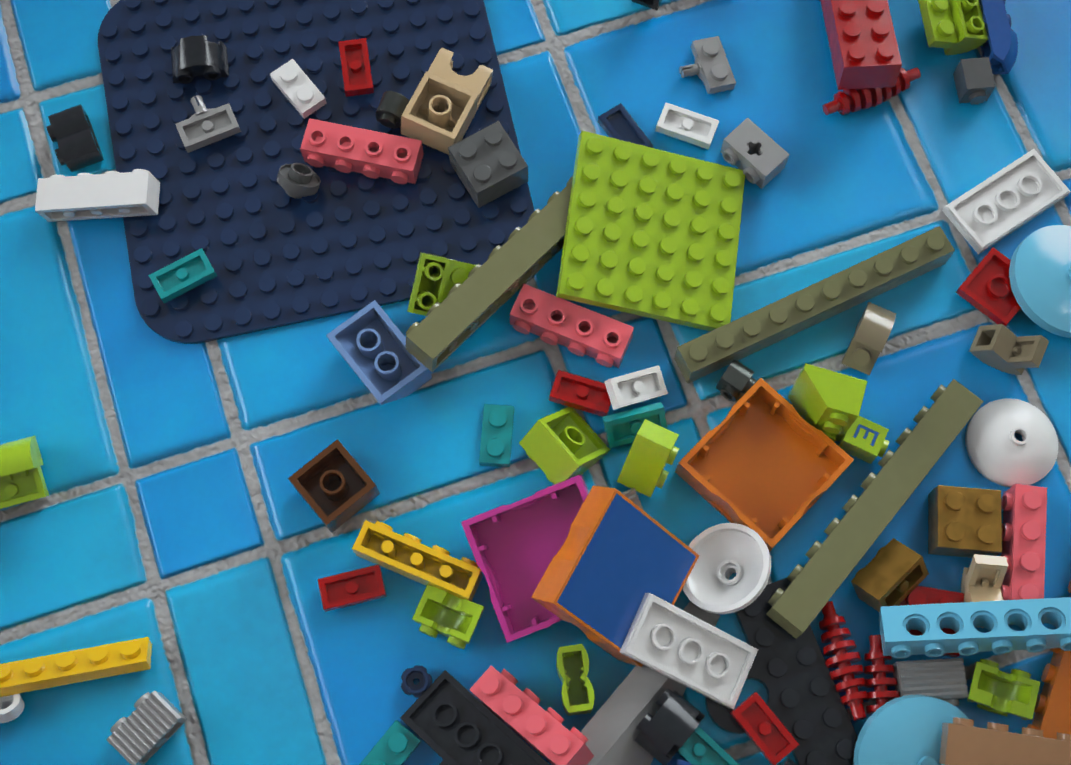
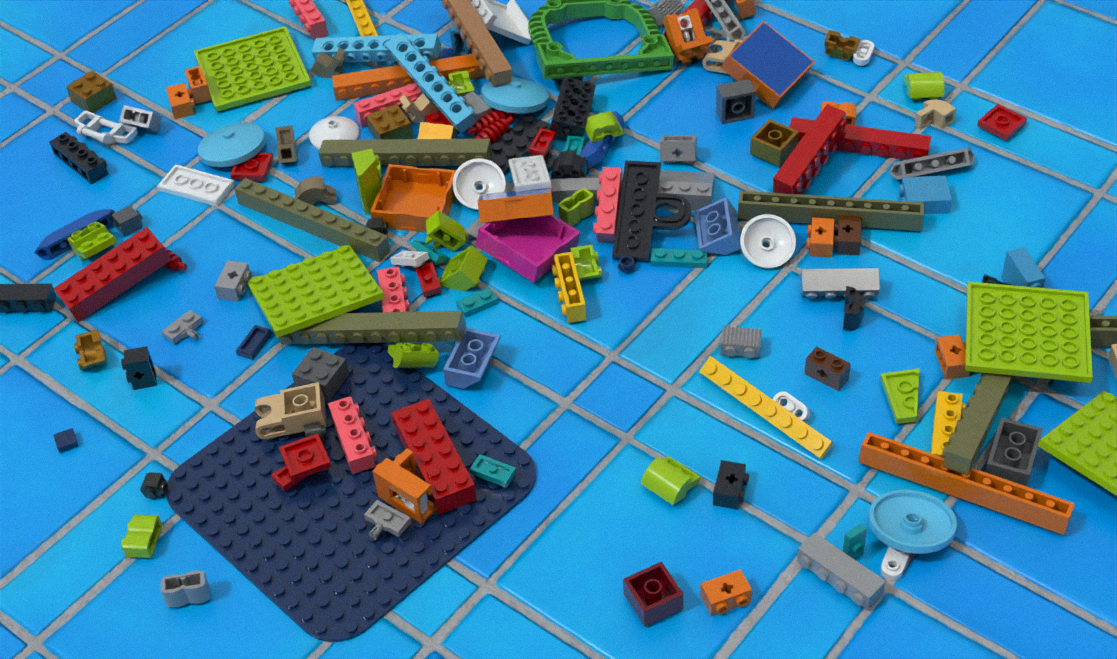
camera: 120 degrees left, 25 degrees down
(74, 138) = (442, 588): black brick -> none
(97, 196) = (474, 544): white brick -> none
(198, 58) = (345, 554): black cylinder -> none
(220, 153) = (402, 488): none -> orange brick
(254, 219) = (434, 456): none -> red brick
(298, 88) = (328, 495): white plate -> none
(298, 180) = (392, 448): dark grey plate -> none
(334, 485) = (558, 338): reddish brown brick -> none
(352, 587) = (604, 309): red plate -> none
(354, 76) = (305, 457): none -> red plate
(687, 125) = (232, 316): white plate -> none

